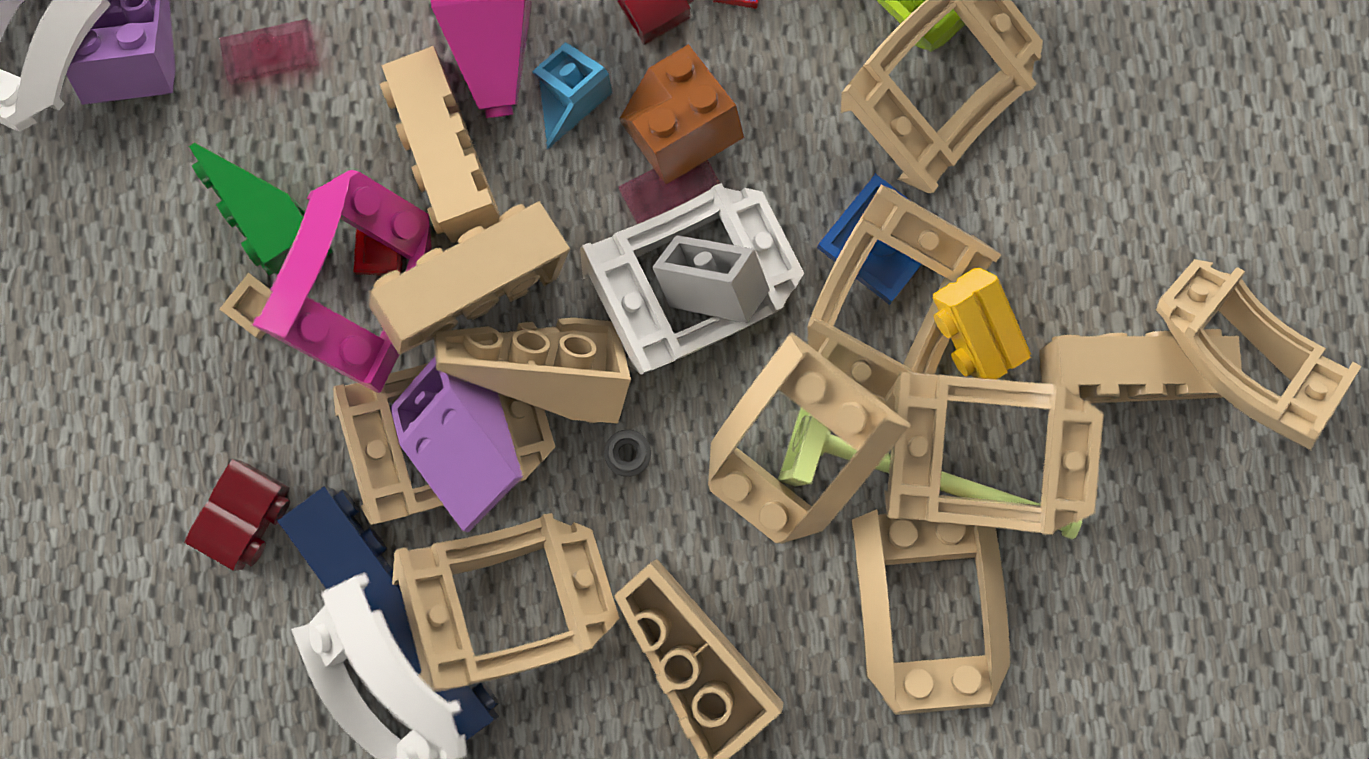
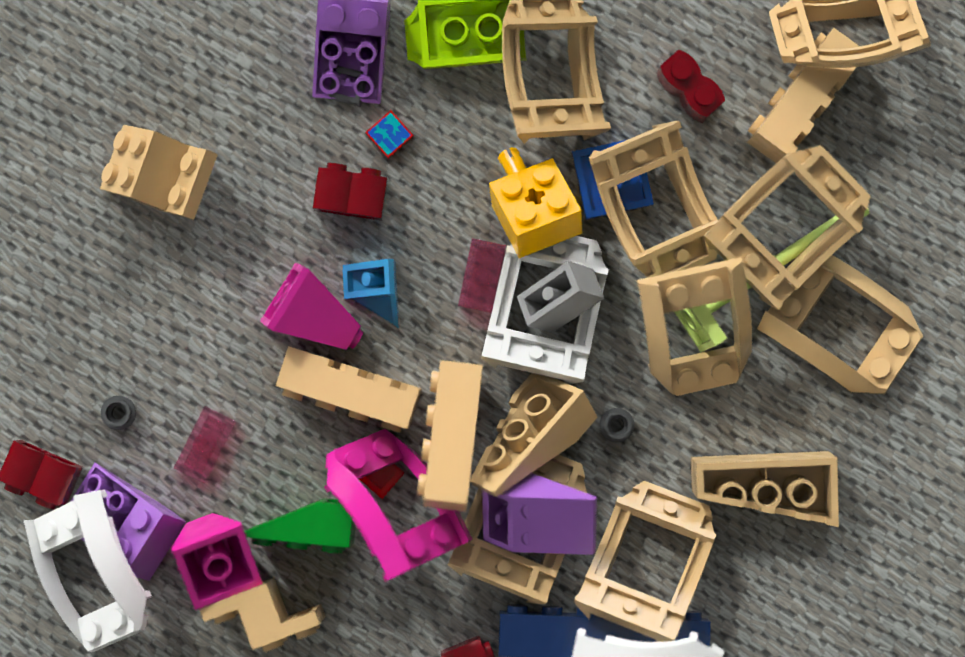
camera: 55 degrees left, 5 degrees up
(130, 241) = (265, 616): none -> tan bracket
(137, 137) = (215, 559): none -> dark pink slope
(247, 304) = (355, 573): tan plate -> none
(681, 115) = (447, 236): dark orange slope -> none
(786, 176) = (534, 204): none -> yellow brick
(980, 325) = (710, 166): yellow brick -> none
(1046, 229) = (683, 79): none -> dark red brick

